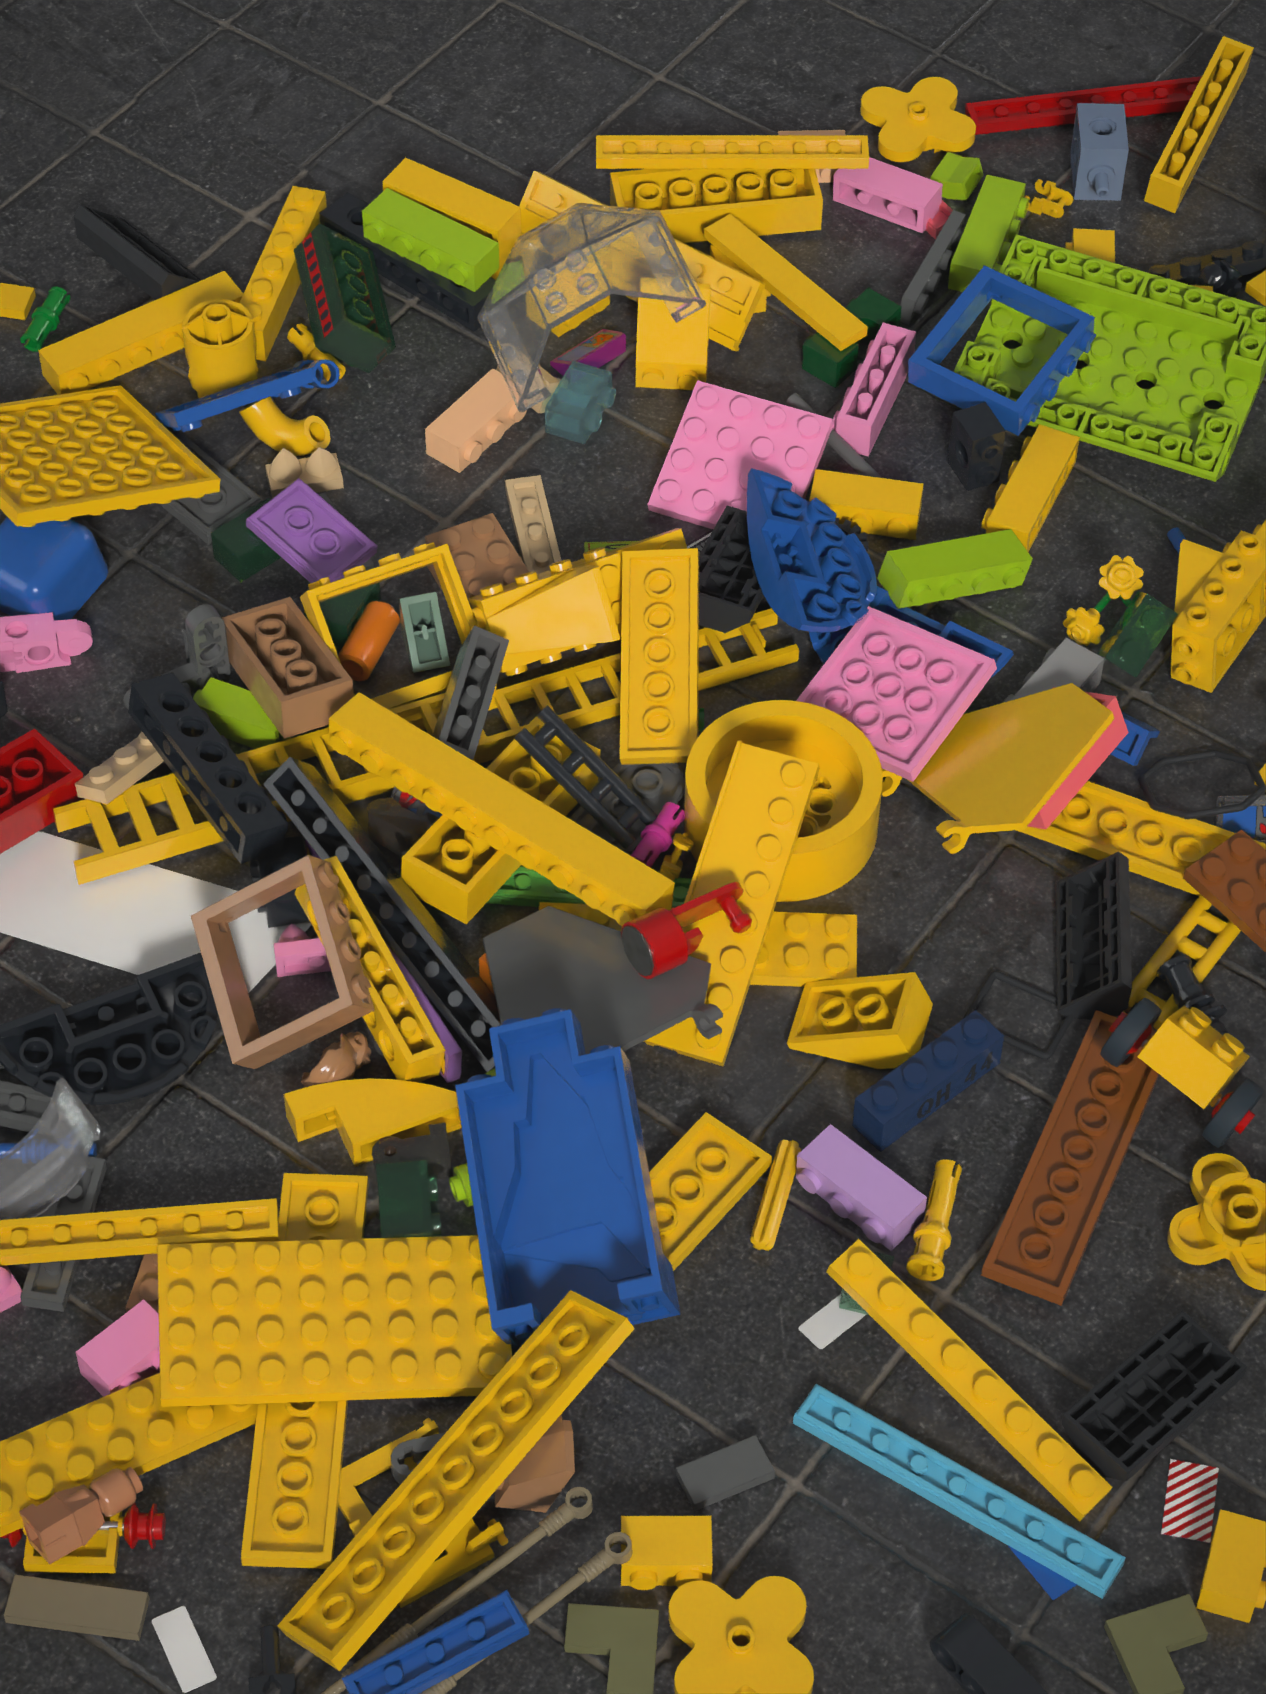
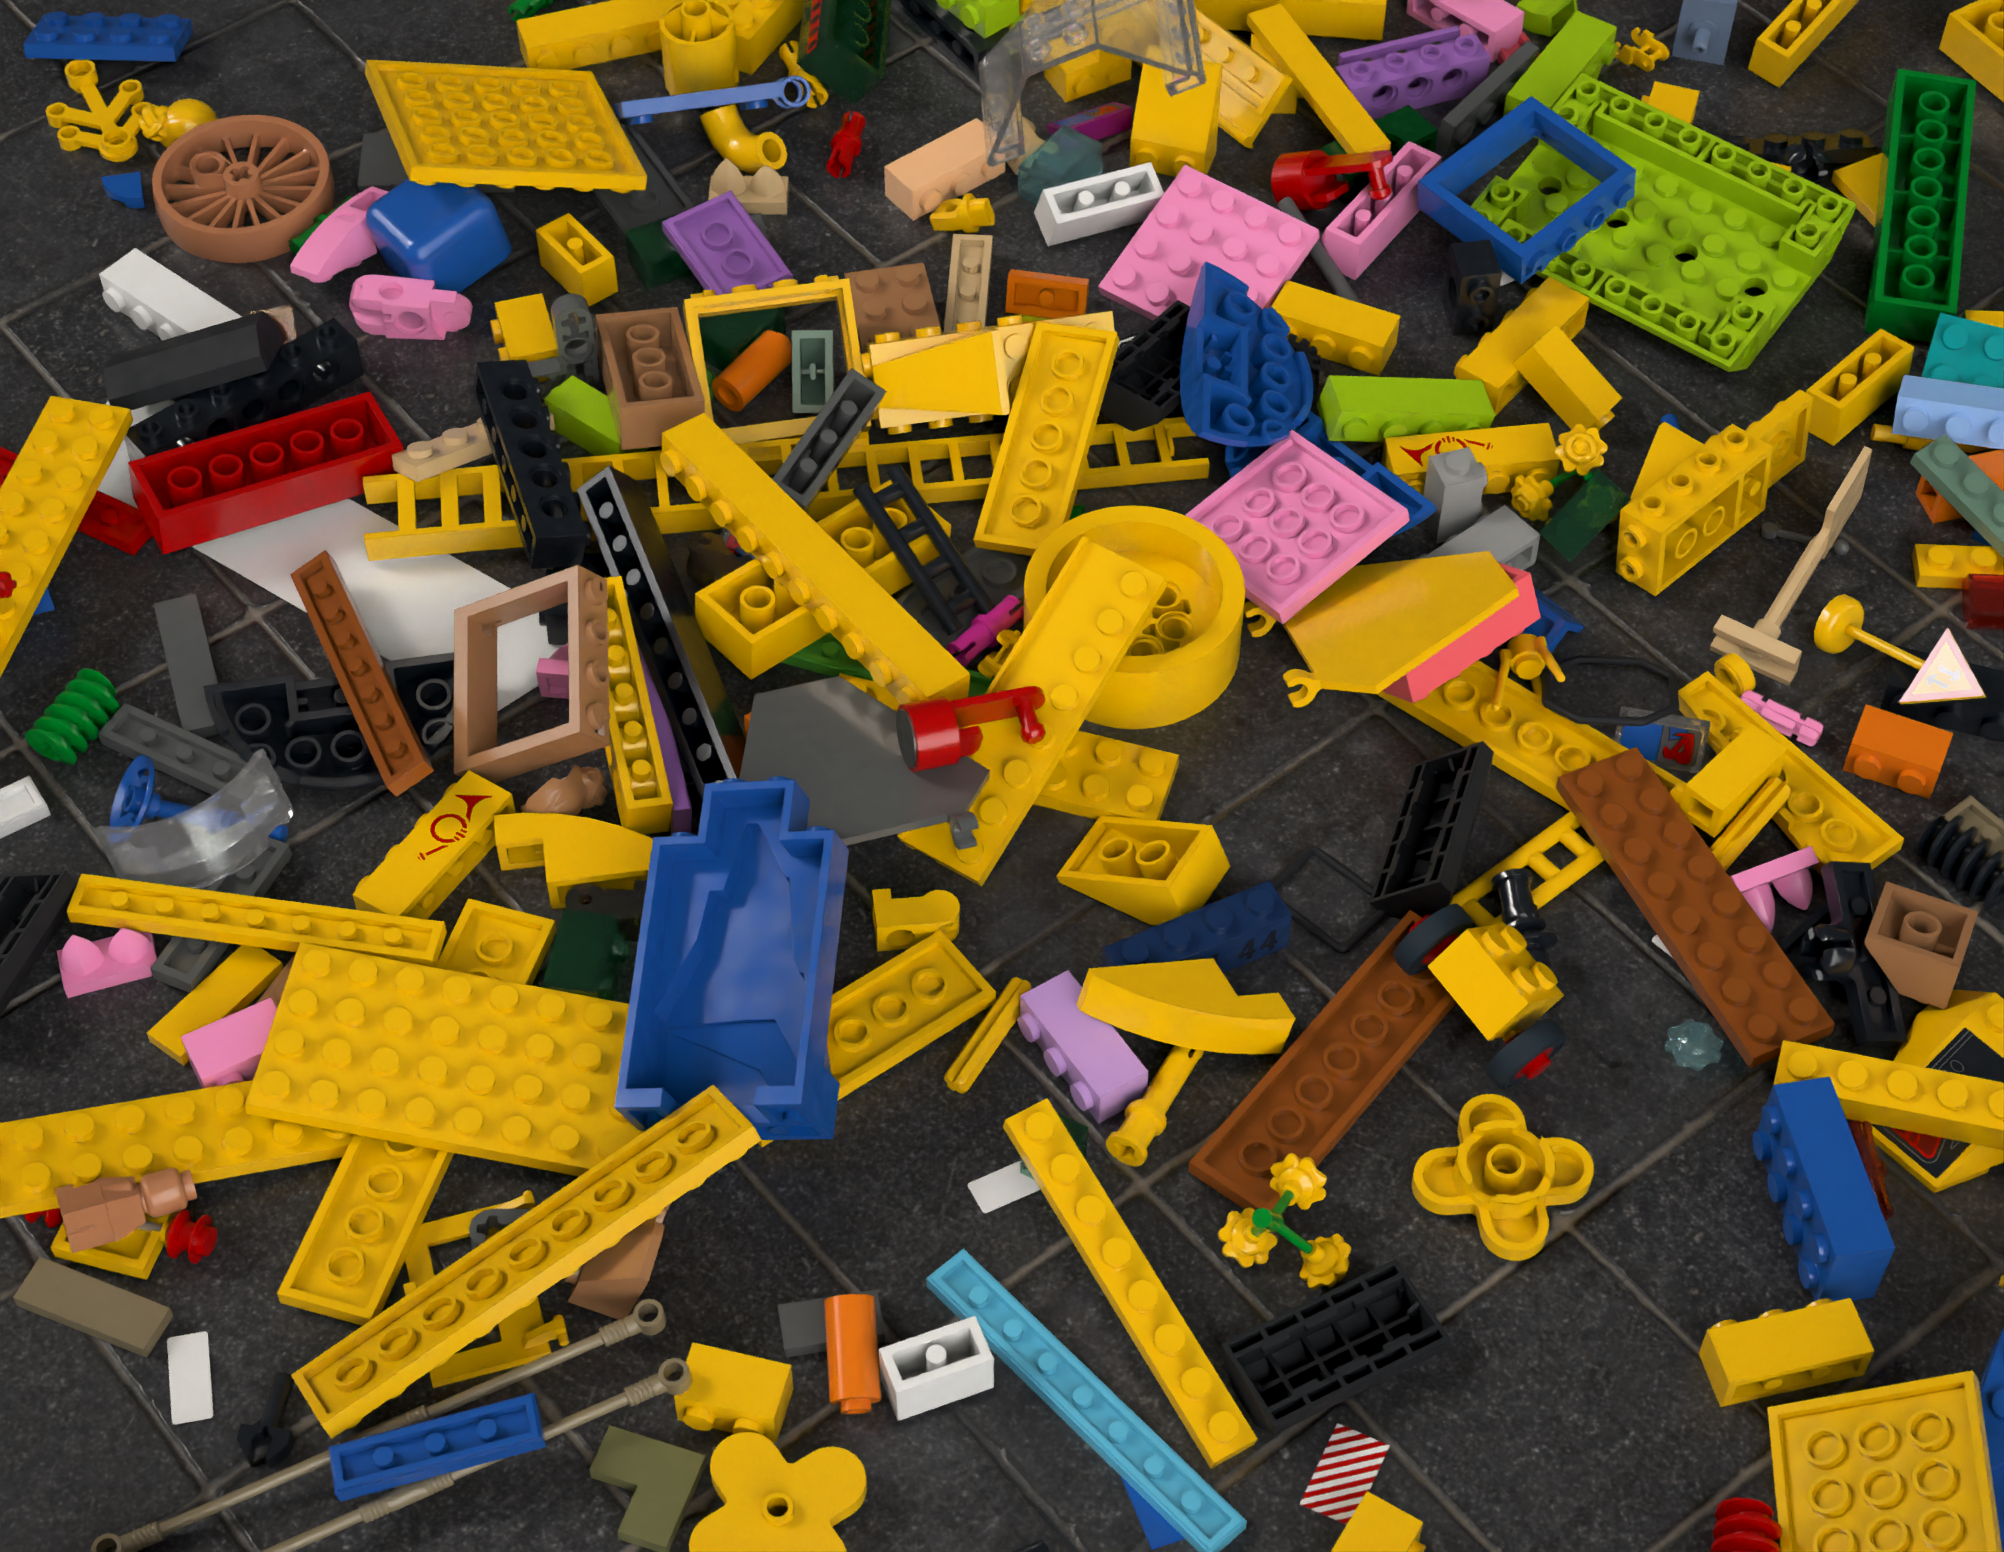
camera: 15 degrees right, 0 degrees up
(86, 1313) = (220, 994): none -> yellow tile
(122, 990) = (362, 674): none -> dark orange plate
(149, 644) = (524, 330): none -> yellow brick
(174, 568) = (577, 259): none -> yellow brick
(240, 1135) = (437, 851): none -> yellow brick
(378, 413) = (846, 144): none -> red pin
(505, 460) = (963, 214): none -> yellow piece
(607, 521) = (1046, 294): none -> orange tile
(626, 428) = (1098, 204): none -> white brick
(676, 1109) = (907, 921): none -> yellow leg
(757, 1493) = (852, 1352): none -> orange brick
(806, 372) = (1312, 180): none -> red piece
(832, 1490) = (936, 1368): none -> white brick
(867, 247) = (1420, 67): none -> medium lavender brick
(941, 1134) = (1186, 1007): none -> yellow slope
(1023, 629) = (1456, 488): none -> light grey brick
(1024, 601) = (1502, 451): none -> yellow brick
(1052, 1318) = (1249, 1236): none -> yellow plant
(1084, 516) = (1568, 381): none -> yellow brick
(1124, 769) = (1527, 659): none -> yellow plant

